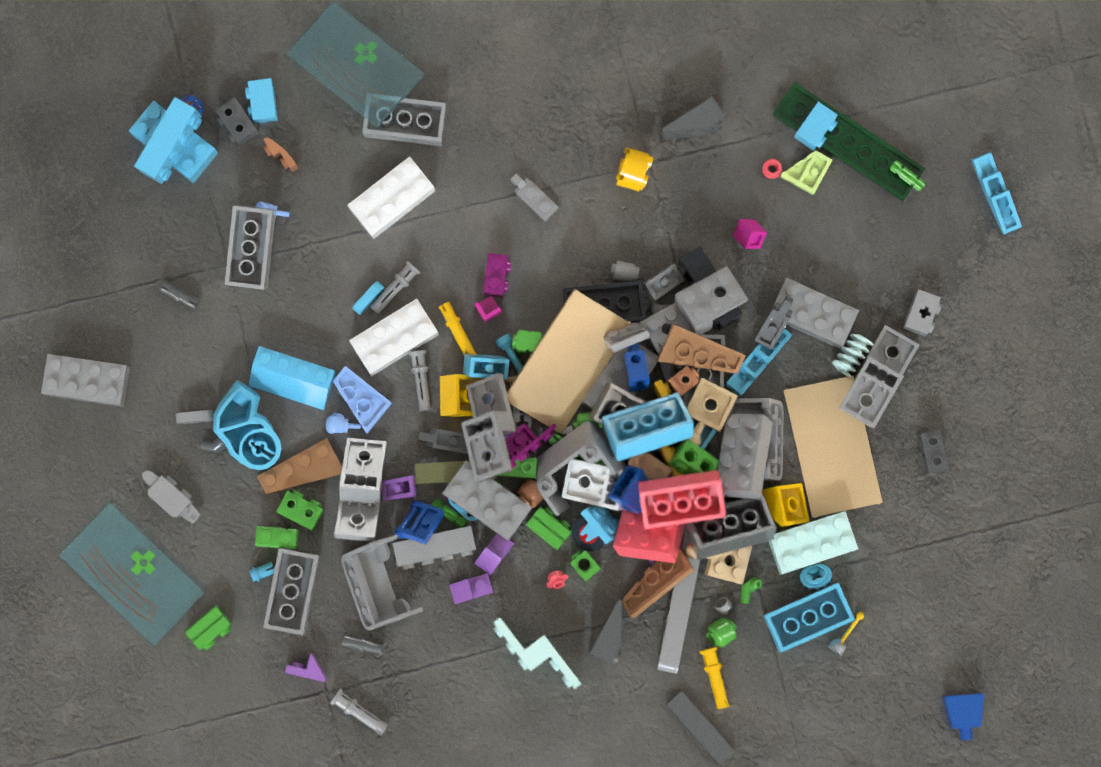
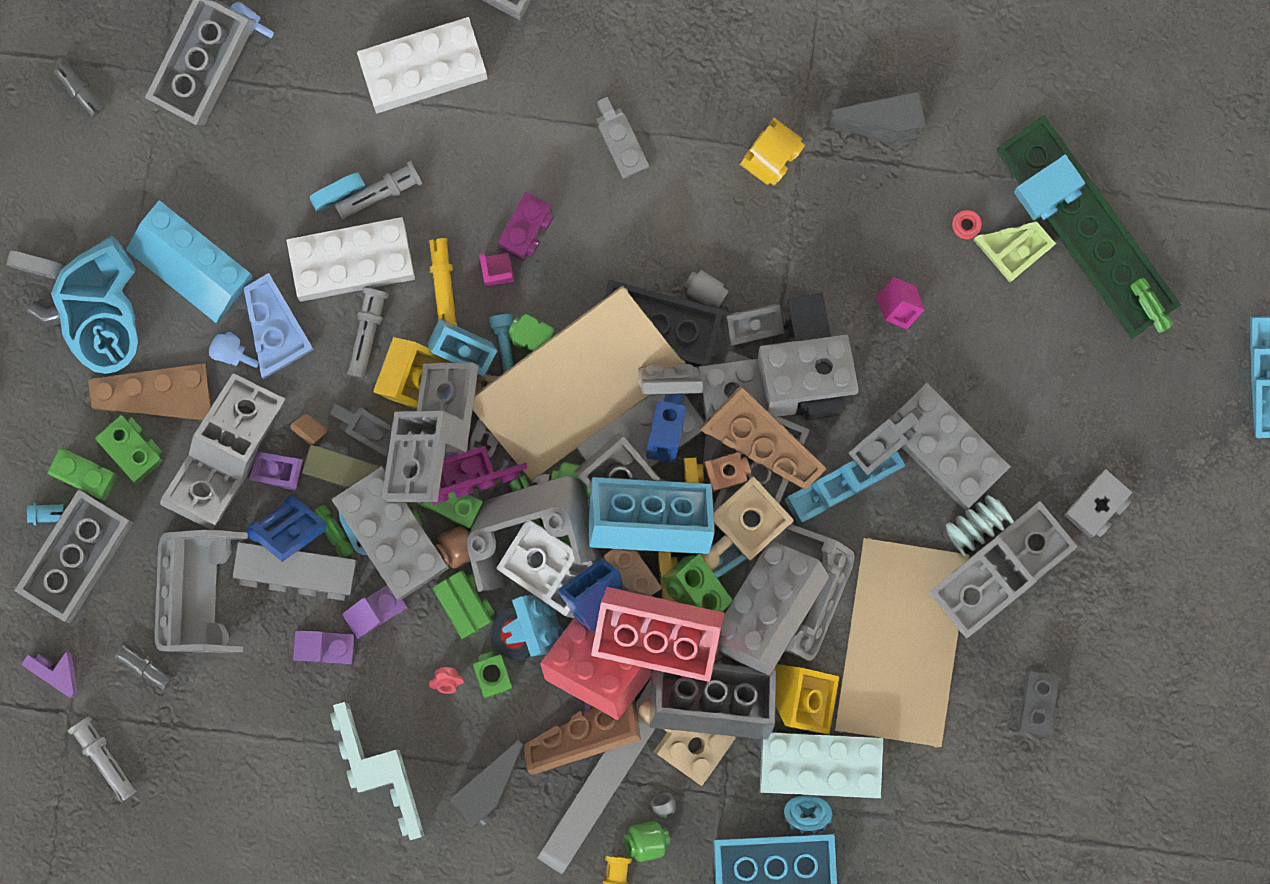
camera: 20 degrees right, 0 degrees up
(409, 455) = (309, 429): none -> medium nougat slope
(749, 587) = (709, 793): bright green arm -> none

